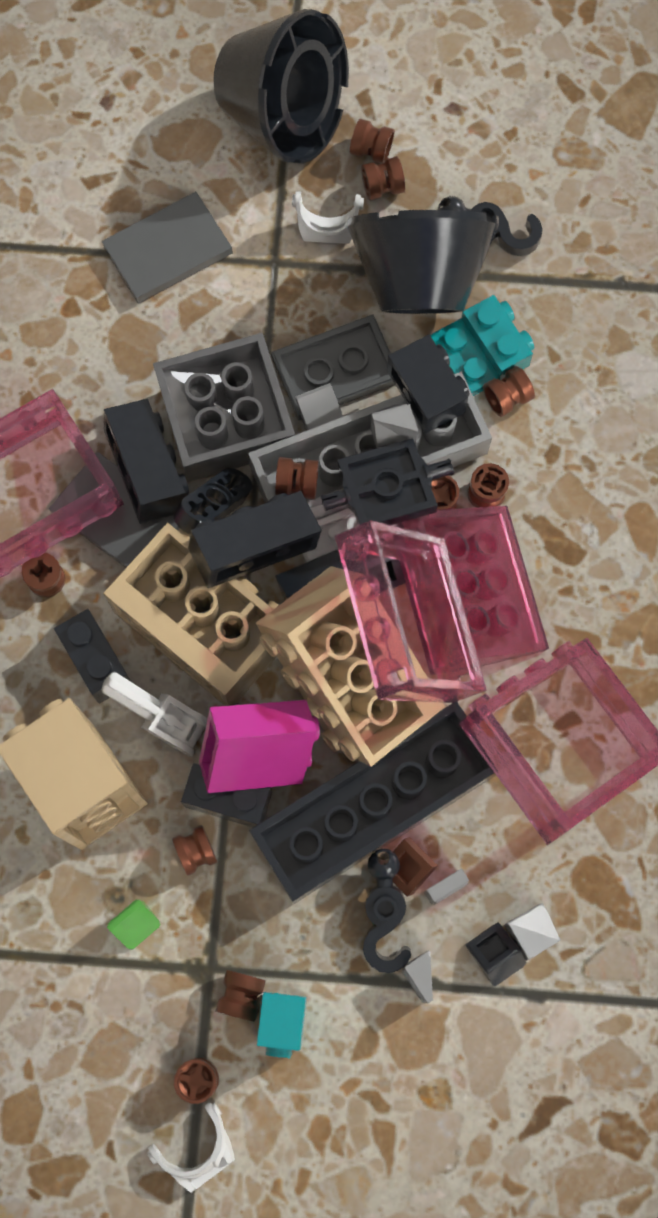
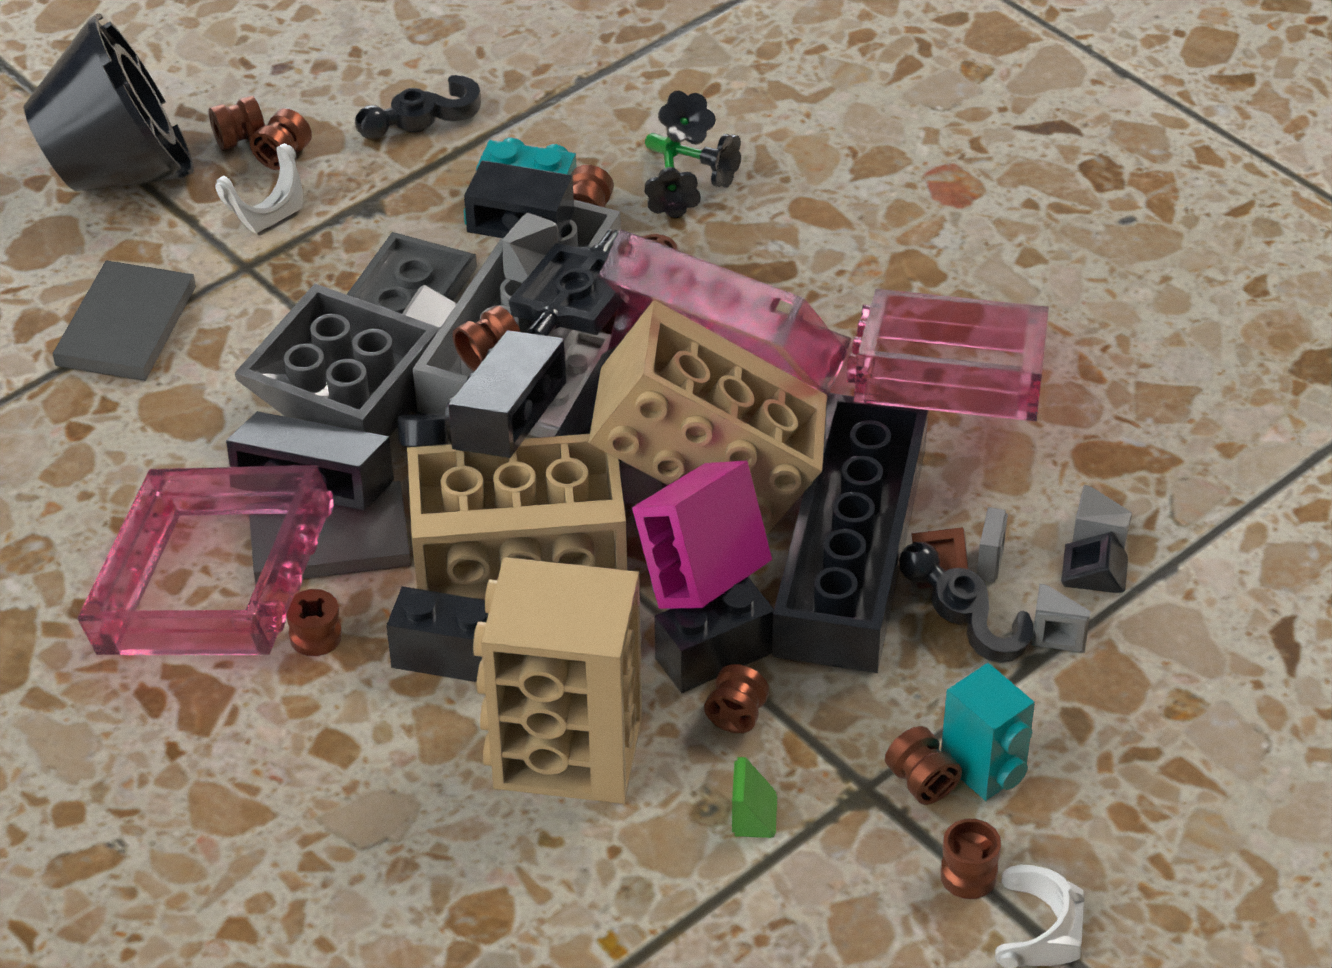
camera: 45 degrees left, 30 degrees down
(422, 257) = (396, 137): black cone -> none
(605, 406) = (688, 120): none -> black plant

